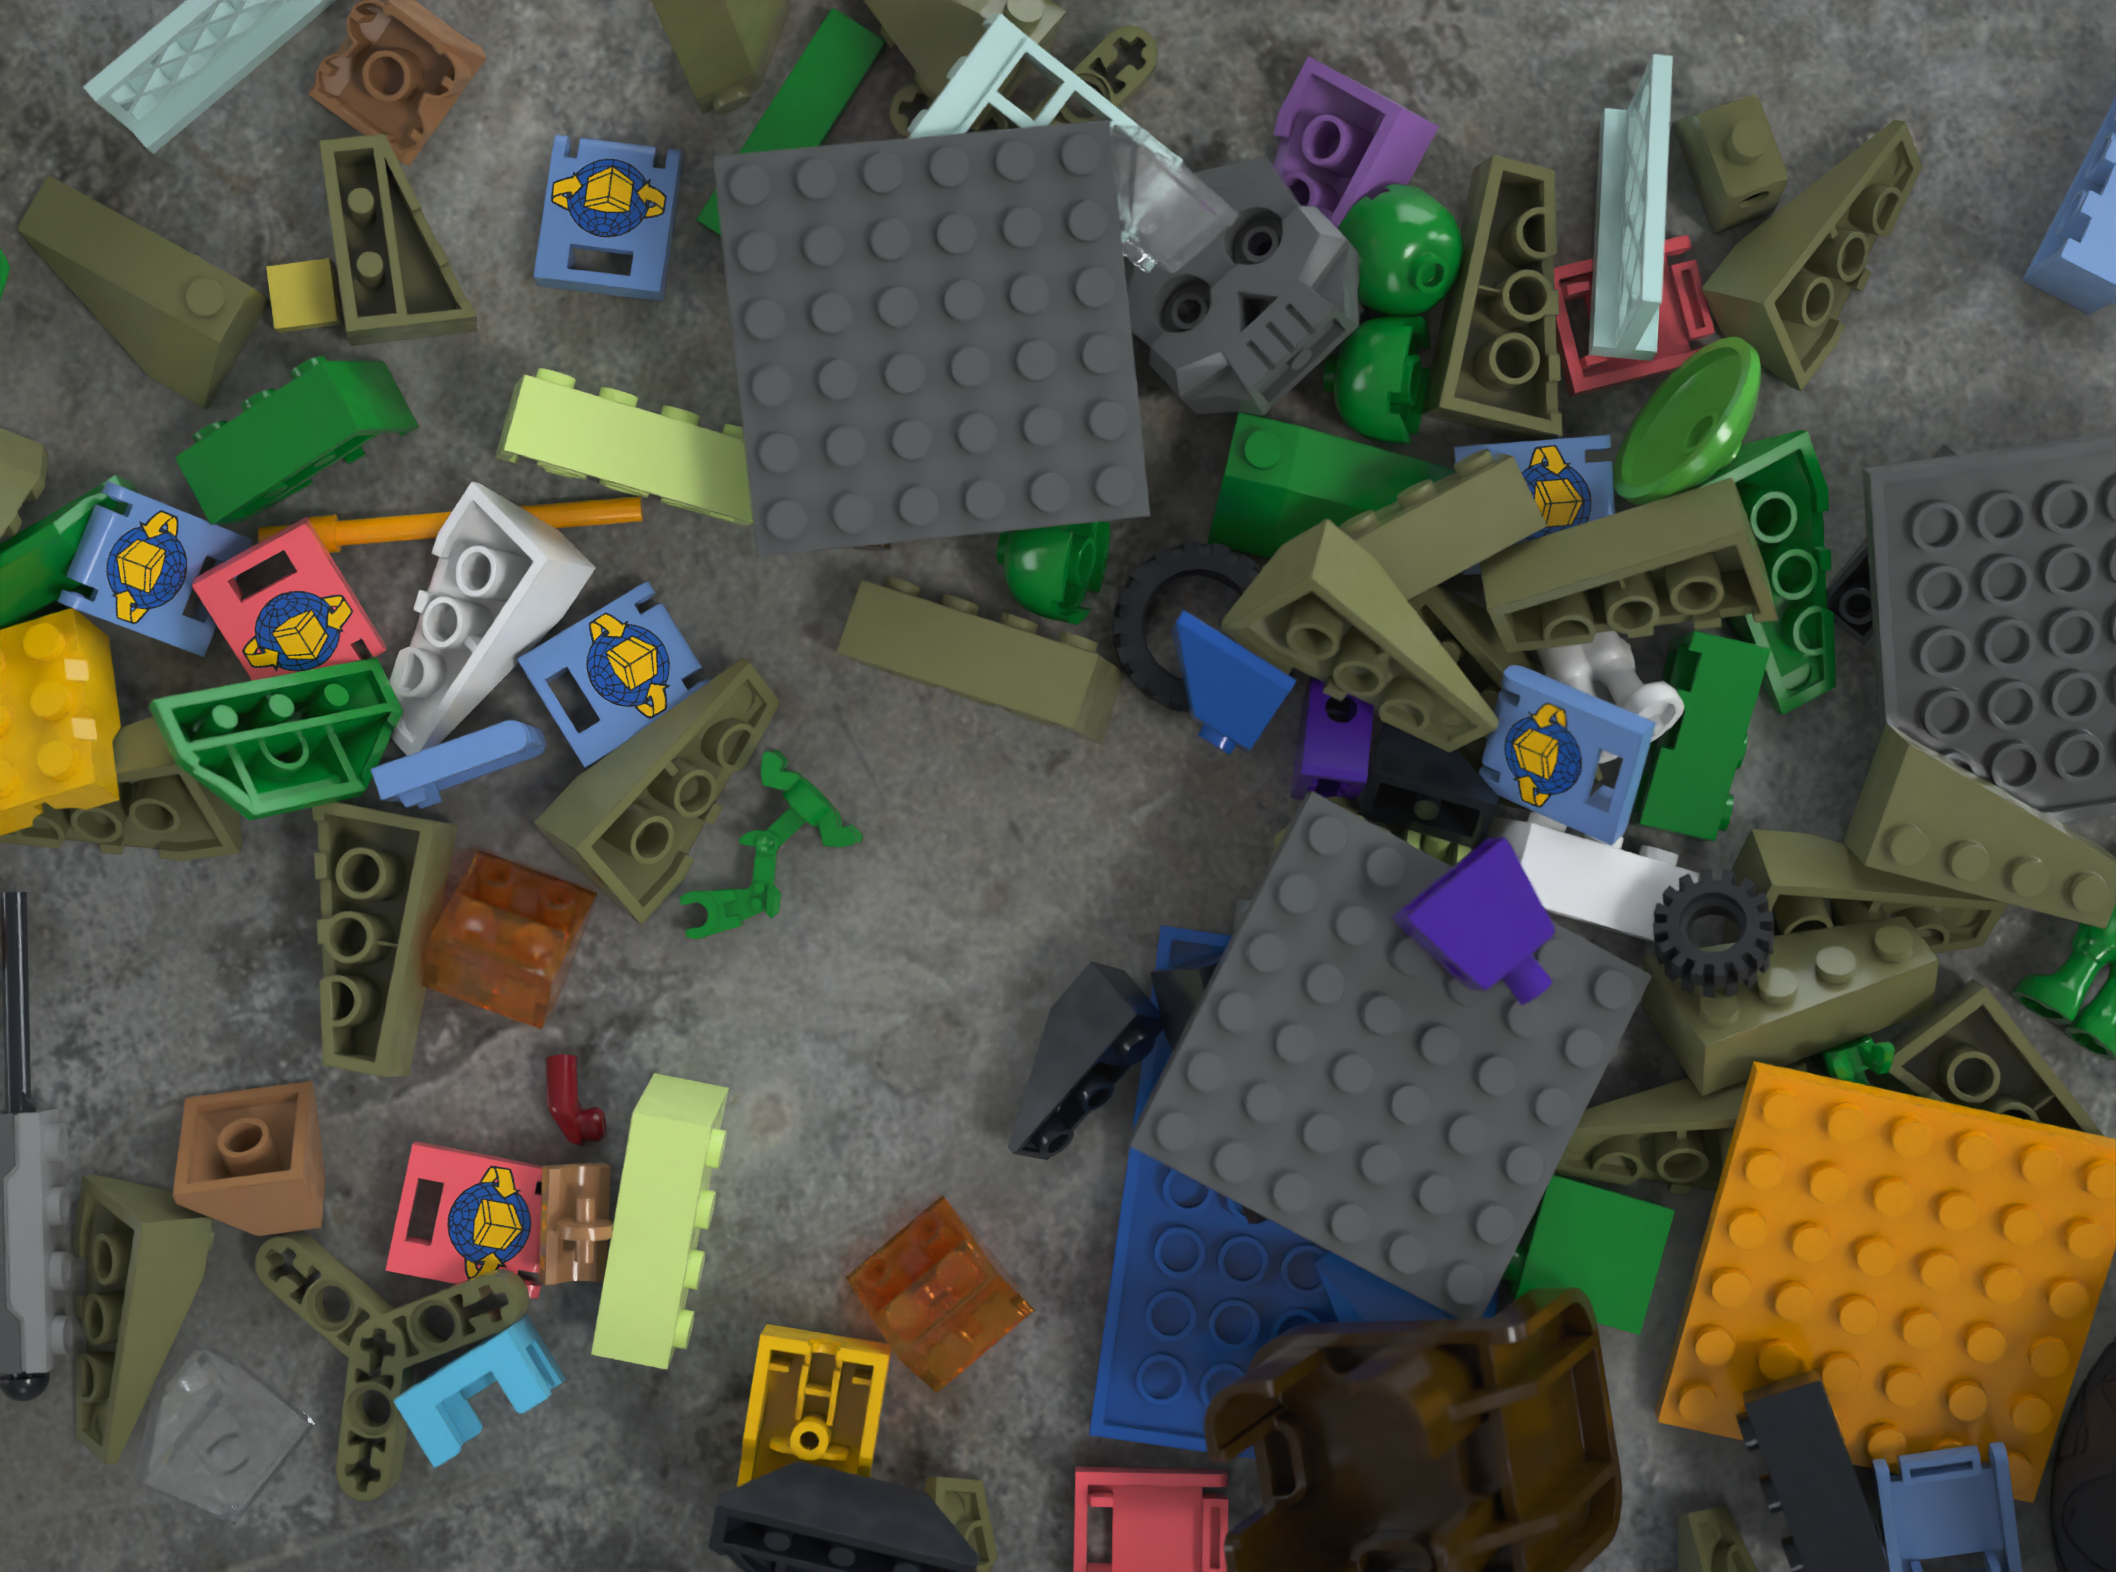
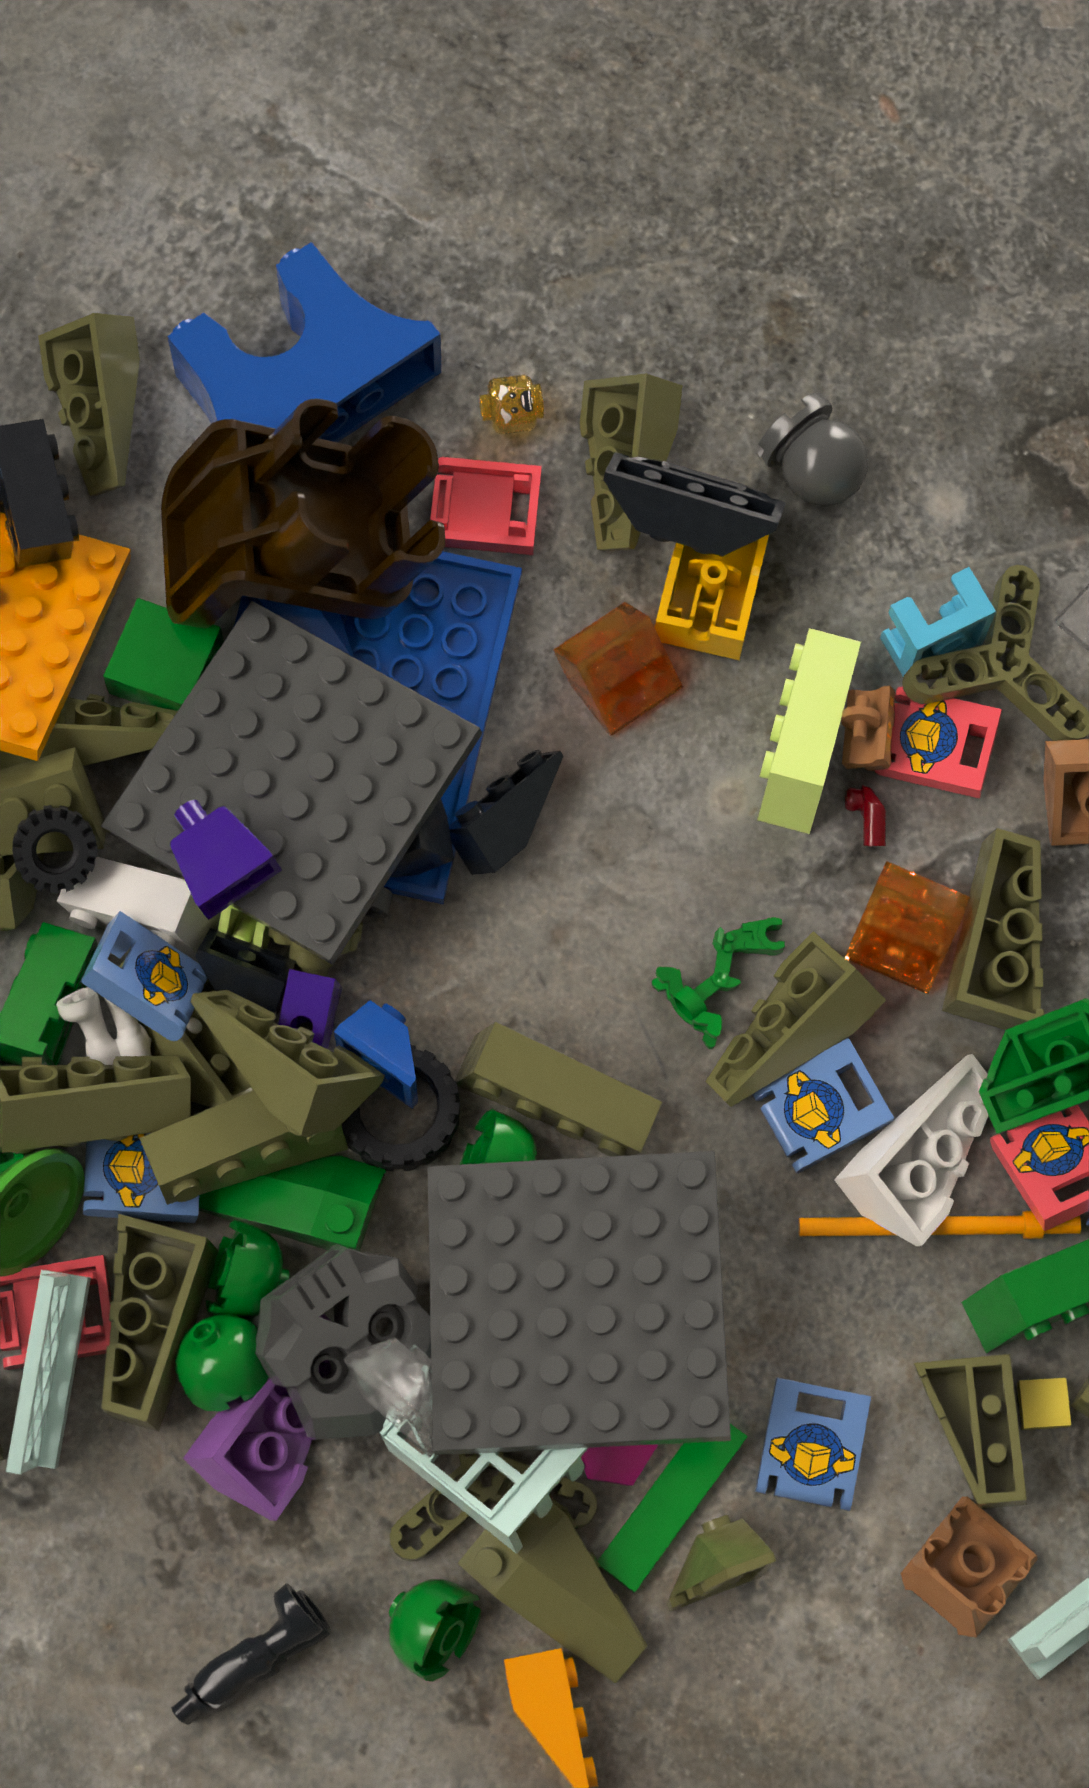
camera: 175 degrees left, 15 degrees down
(424, 774) = (938, 1044): medium blue container -> none
(627, 446) = (810, 1263): yellowish green wedge -> none

